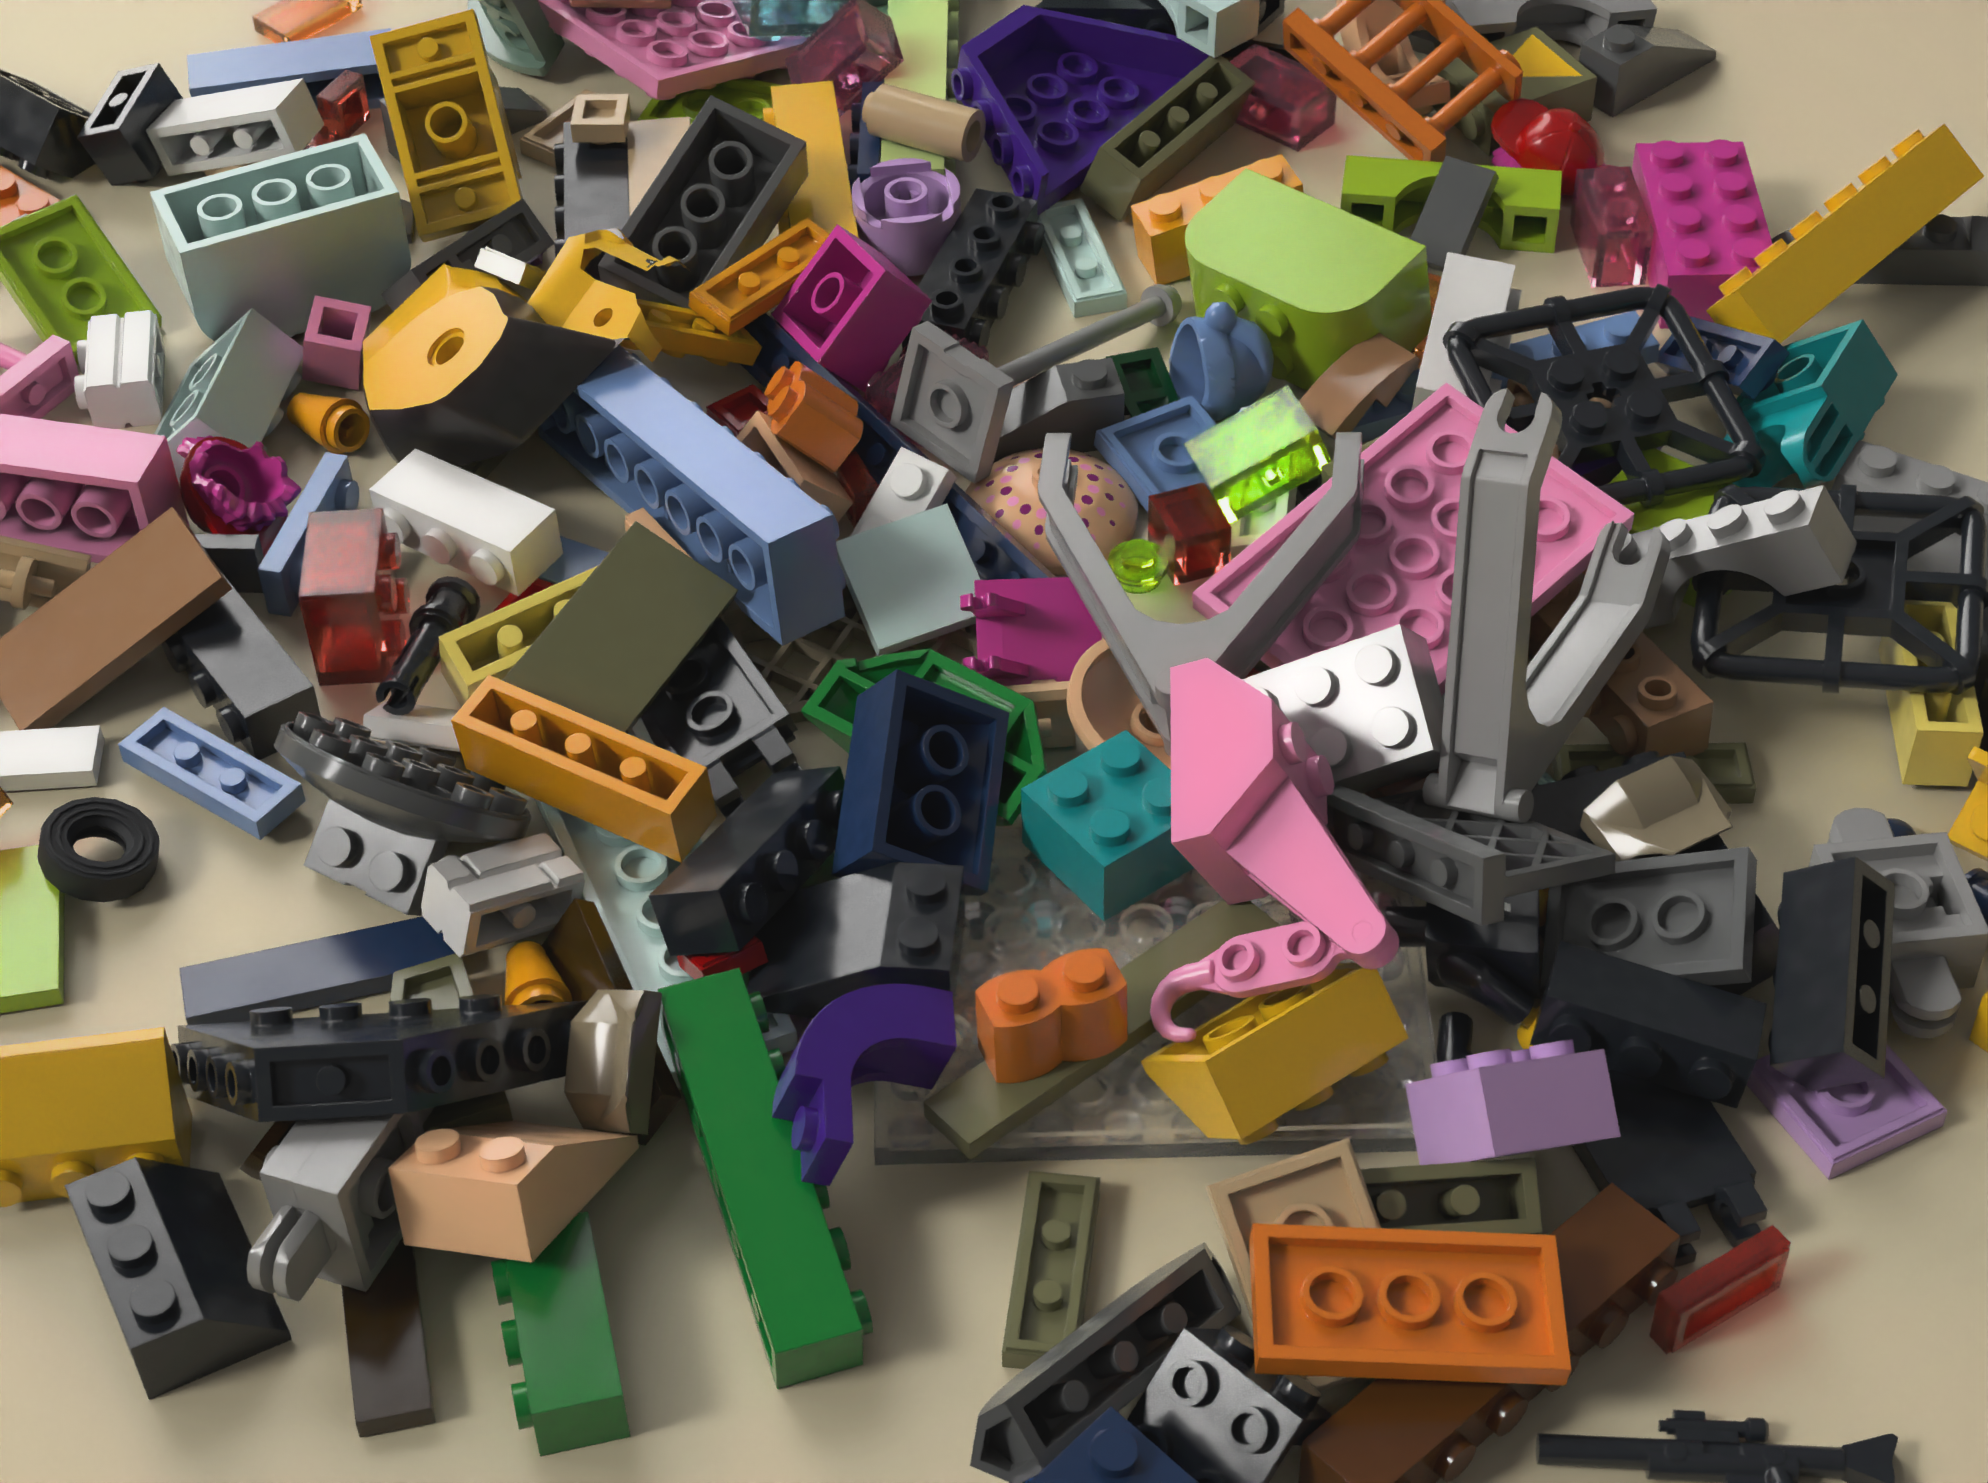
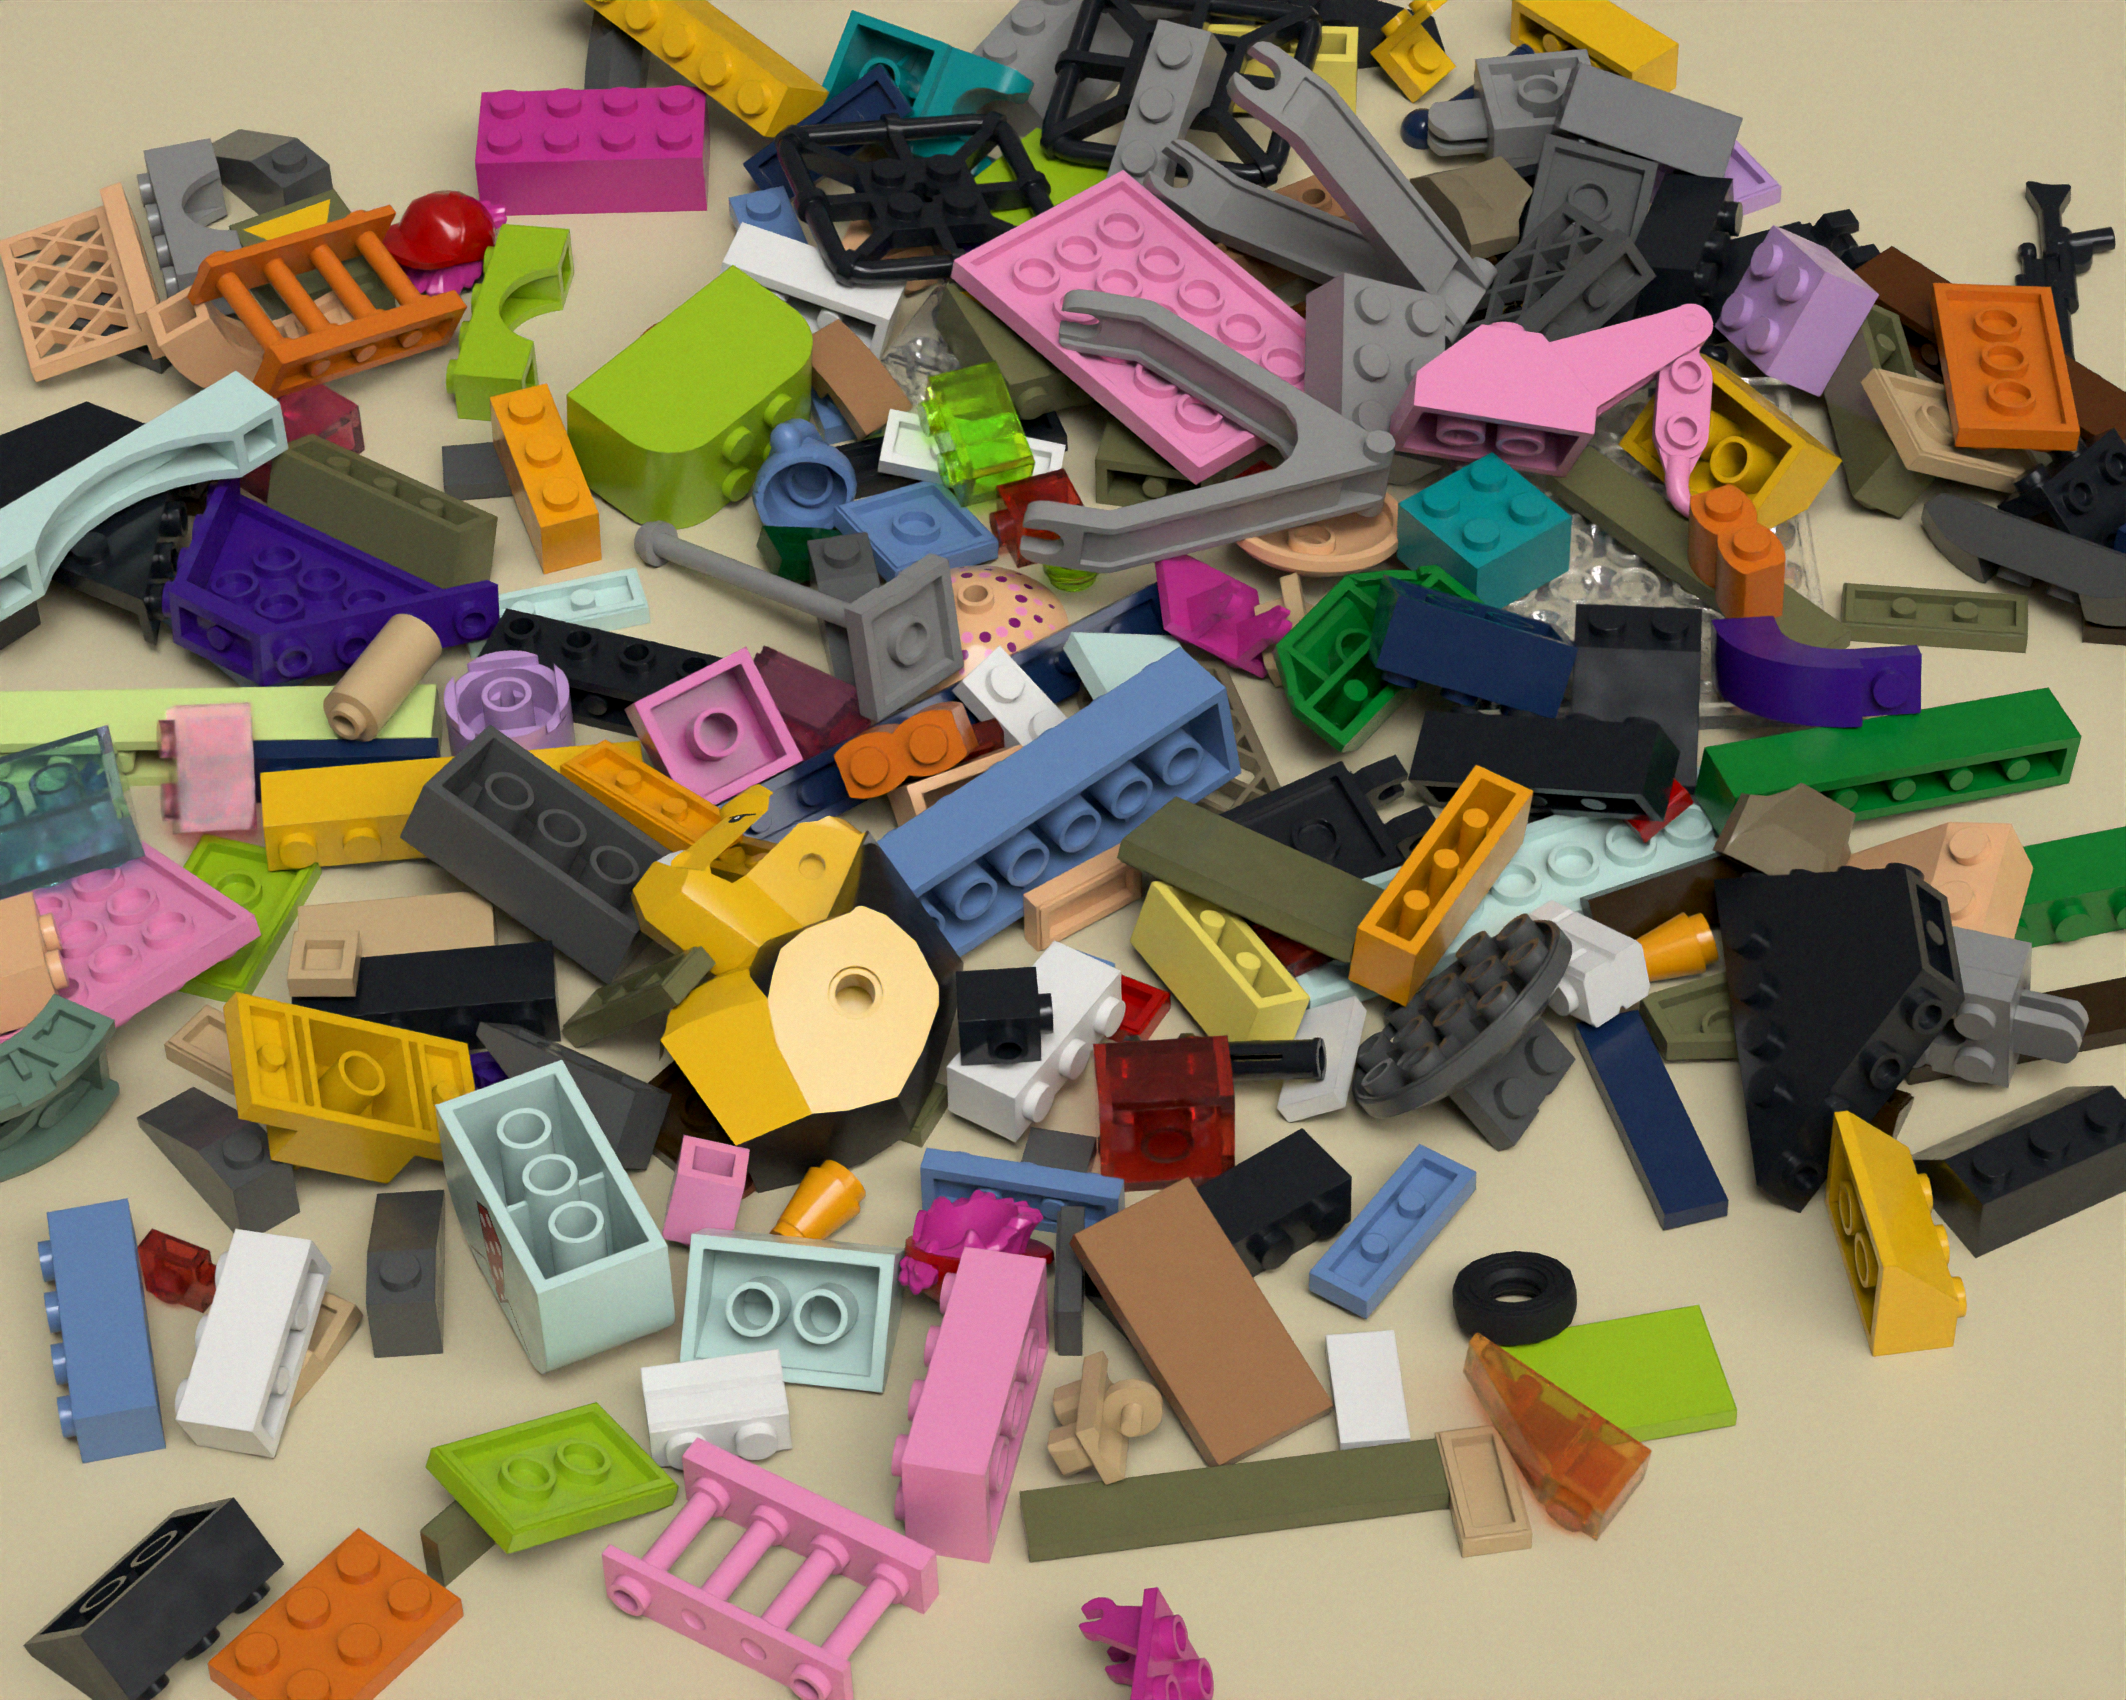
camera: 90 degrees left, 0 degrees up
(118, 125) = (212, 1459): black brick -> none
(434, 456) = (1001, 1016): none -> black brick
(1453, 209) = (554, 312): dark grey tile -> none
(1611, 226) = (583, 198): clear pink brick -> none
(1719, 1290) = (1907, 231): clear red tile -> none

